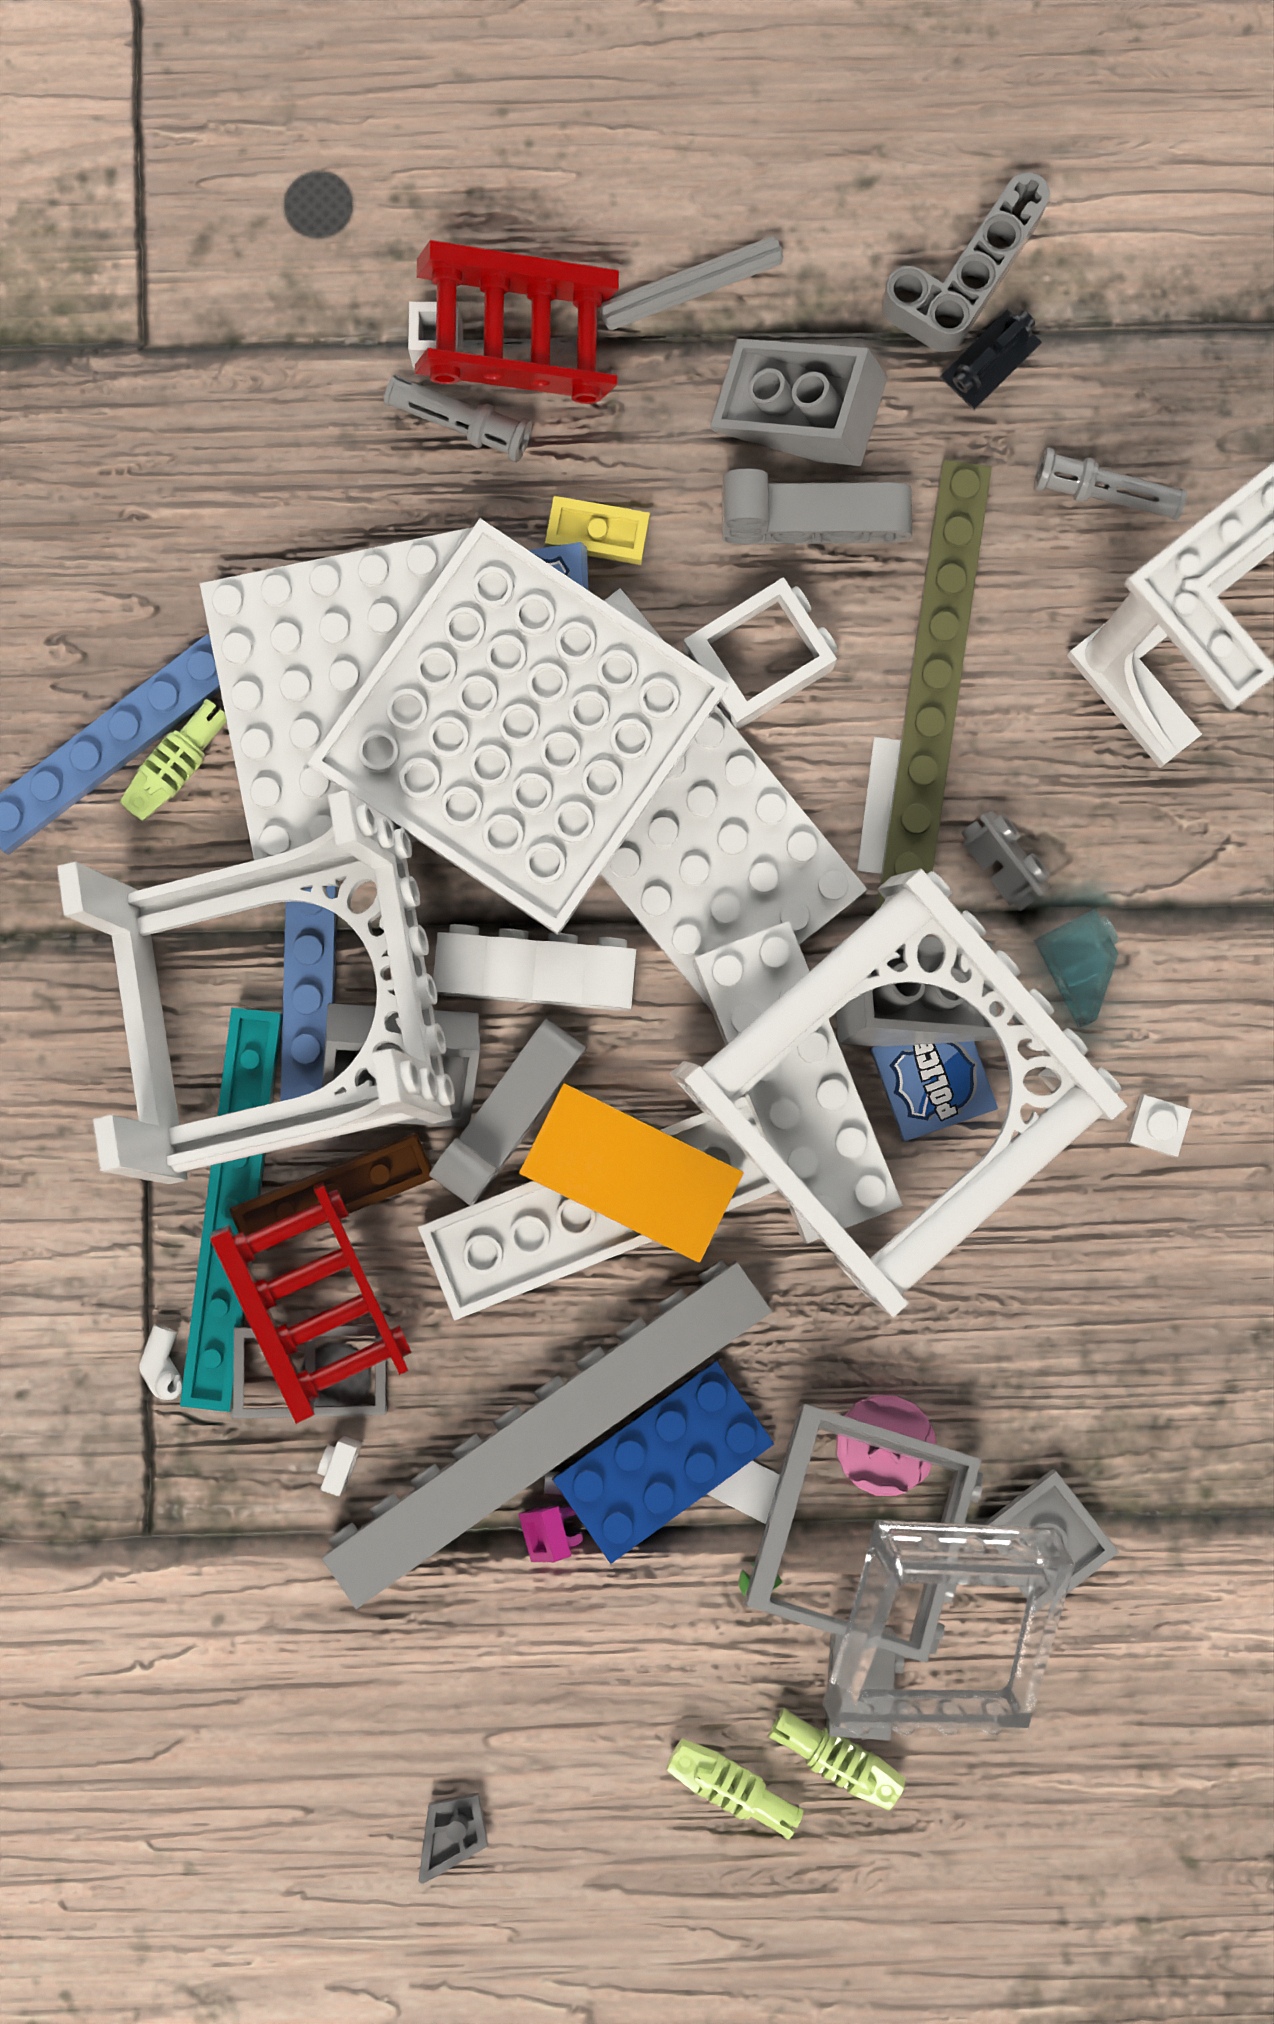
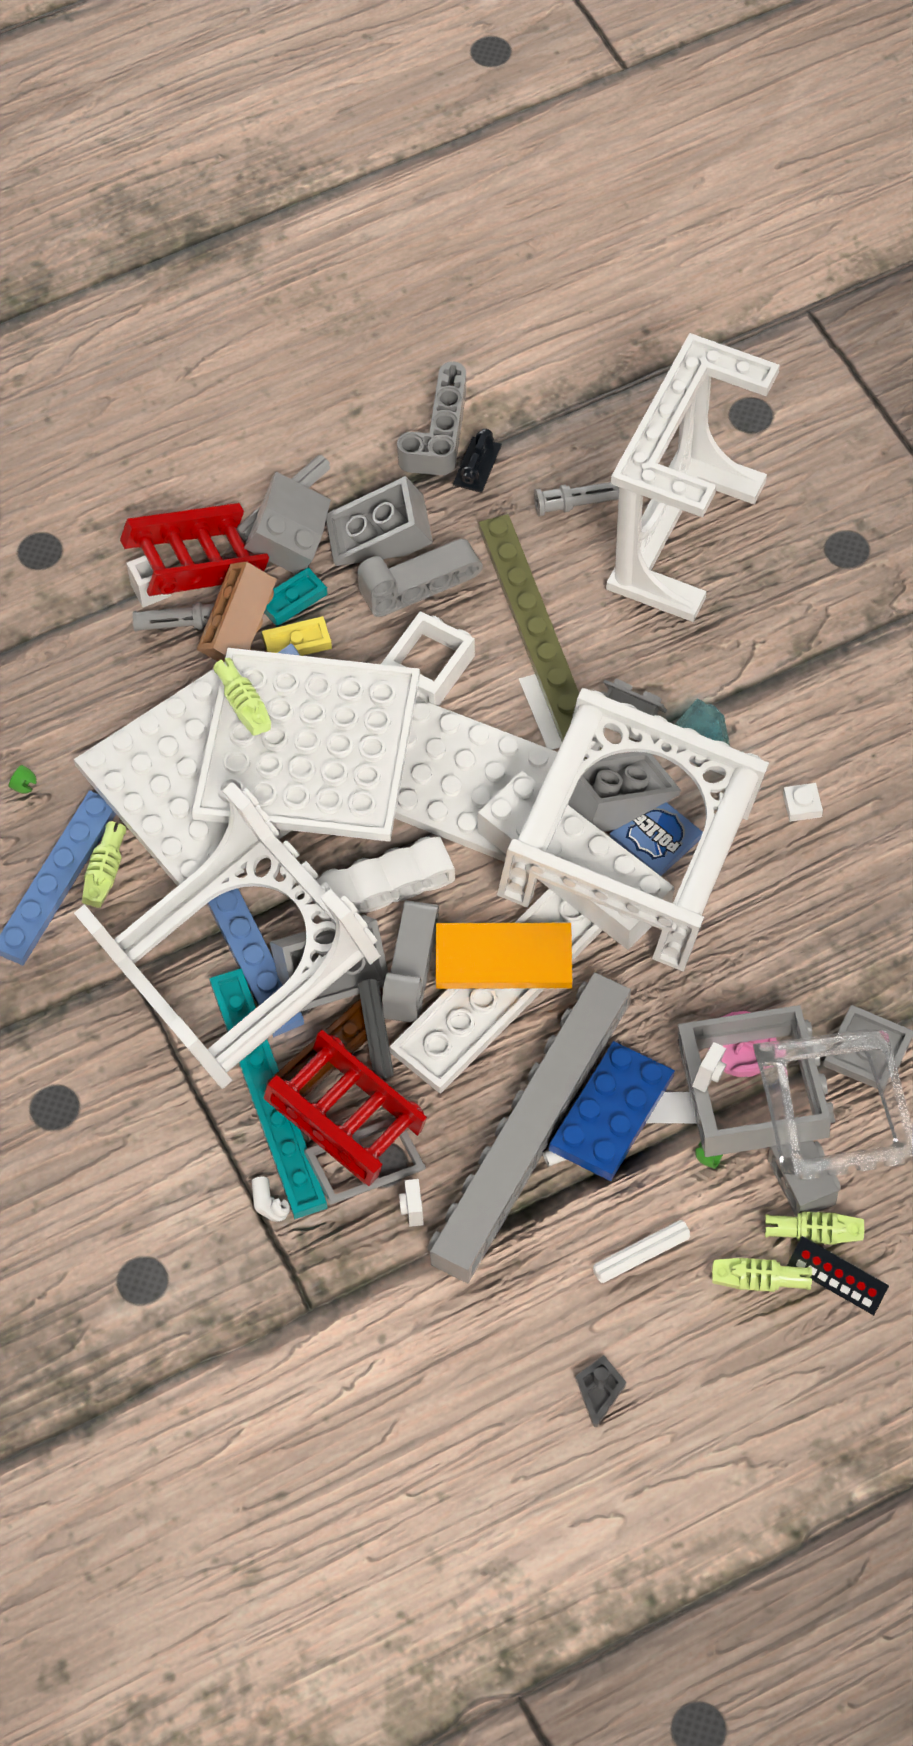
camera: 25 degrees left, 25 degrees down
(127, 573) = (21, 779): none -> bright green hinge
(411, 1194) = (376, 1028): none -> dark grey axle
(456, 619) = (243, 698): none -> yellowish green hinge
(526, 459) = (237, 610): none -> medium nougat brick
(546, 1534) = (562, 1182): dark pink tile -> none
(600, 1674) = (641, 1251): none -> white axle
(625, 457) = (295, 596): none -> teal plate
(675, 336) = (289, 524): none -> light grey slope
(805, 1512) = (710, 1068): none -> white plate
(832, 1838) = (839, 1275): none -> black sticker

